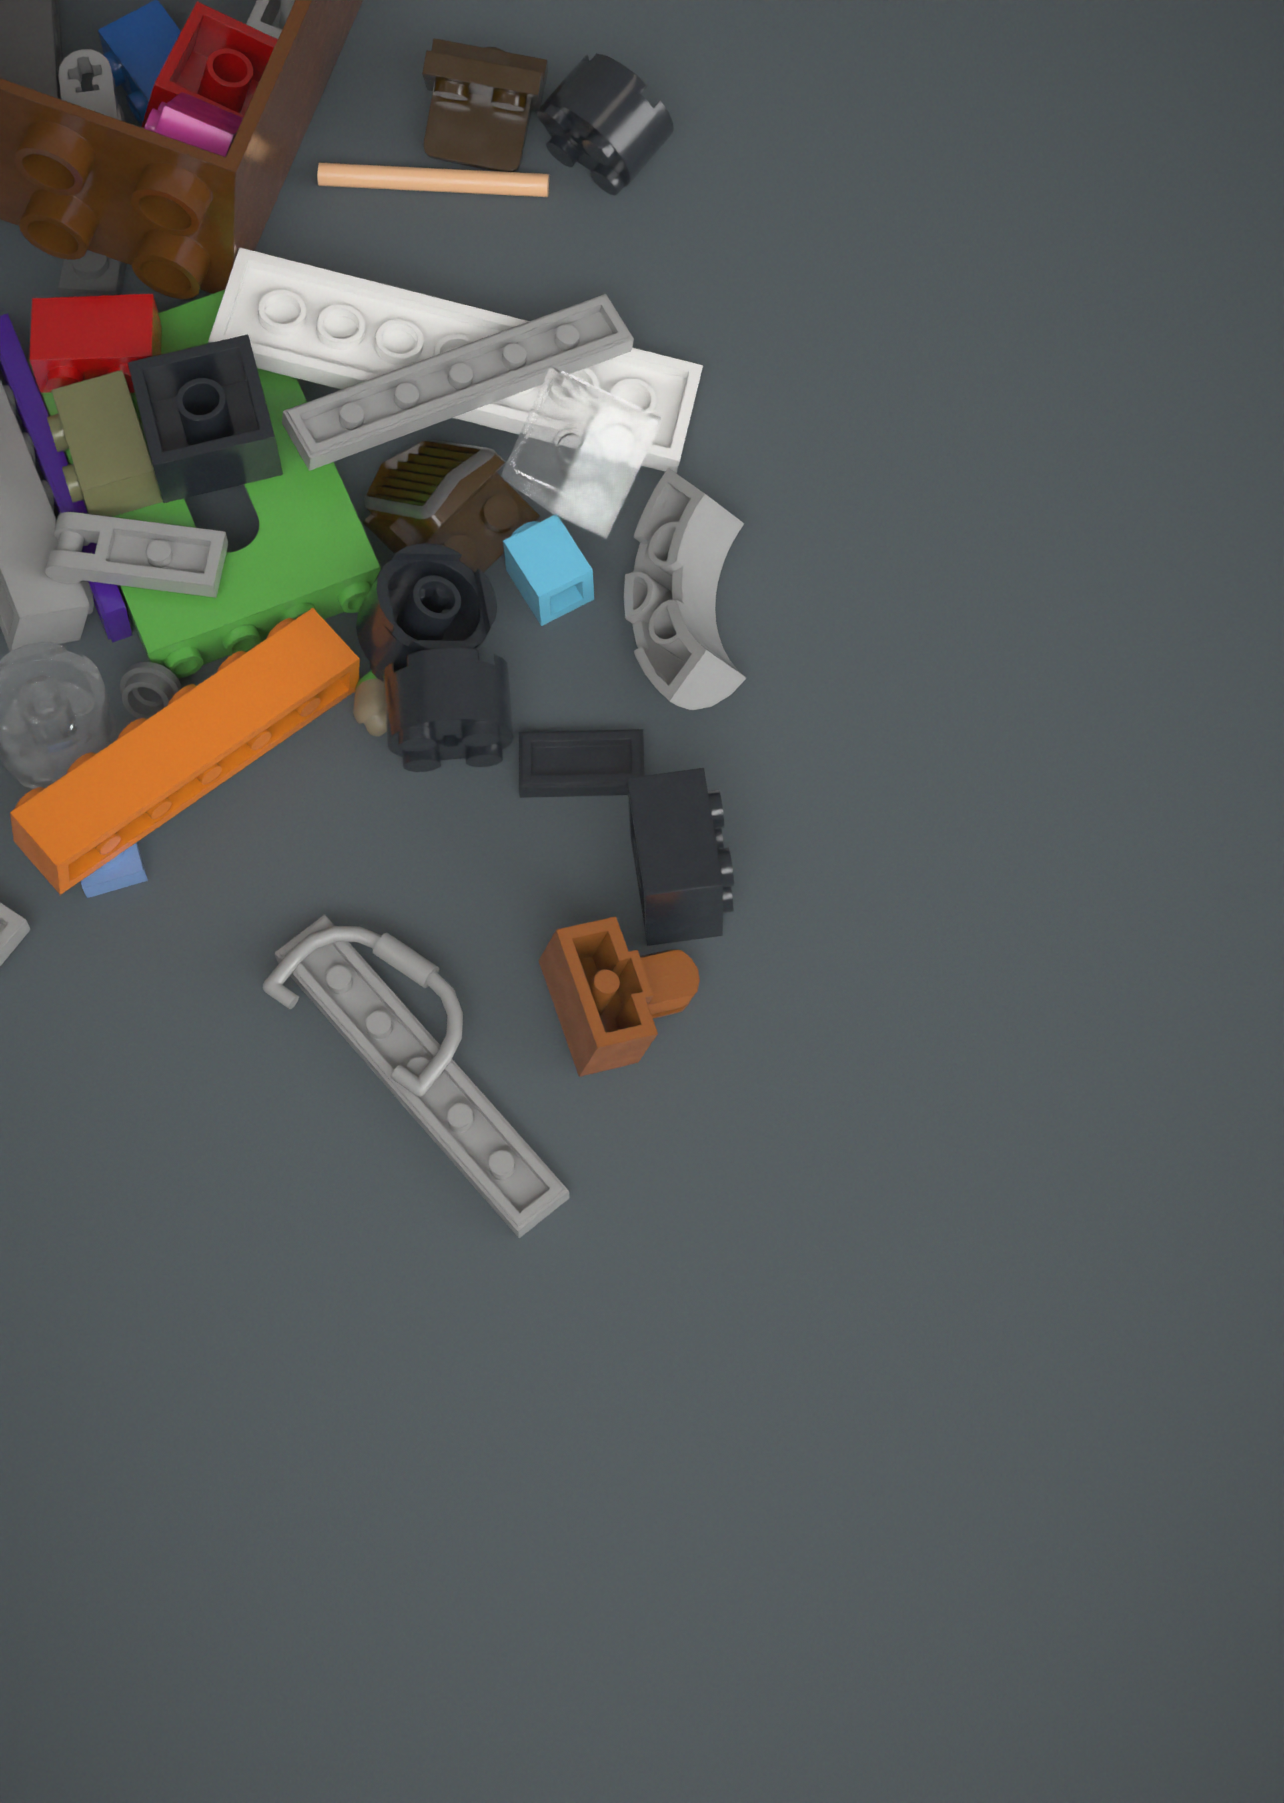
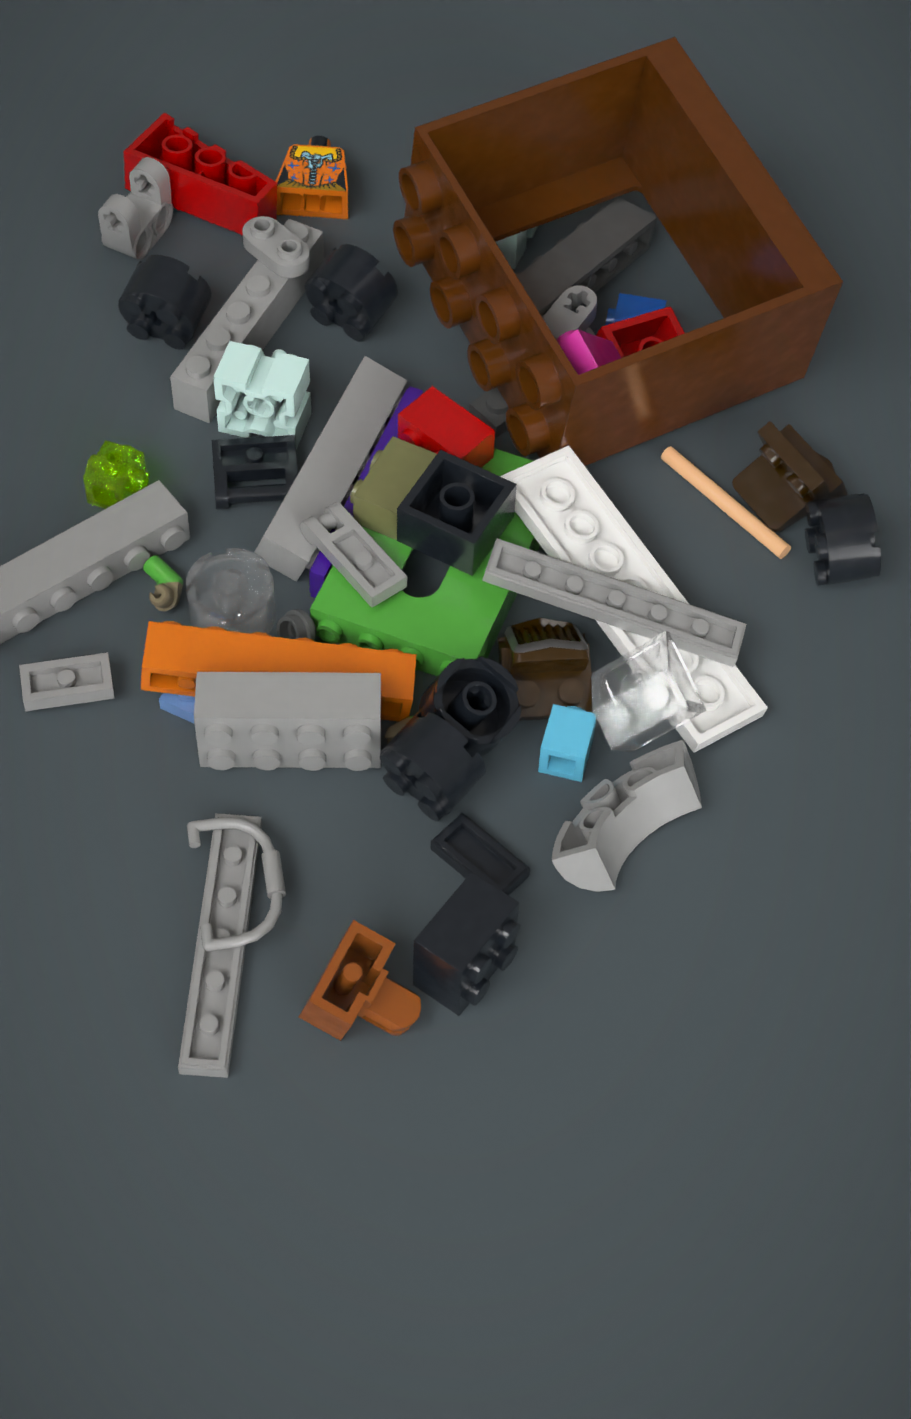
camera: 40 degrees right, 10 degrees down
(258, 789) = (288, 720): none -> light grey brick

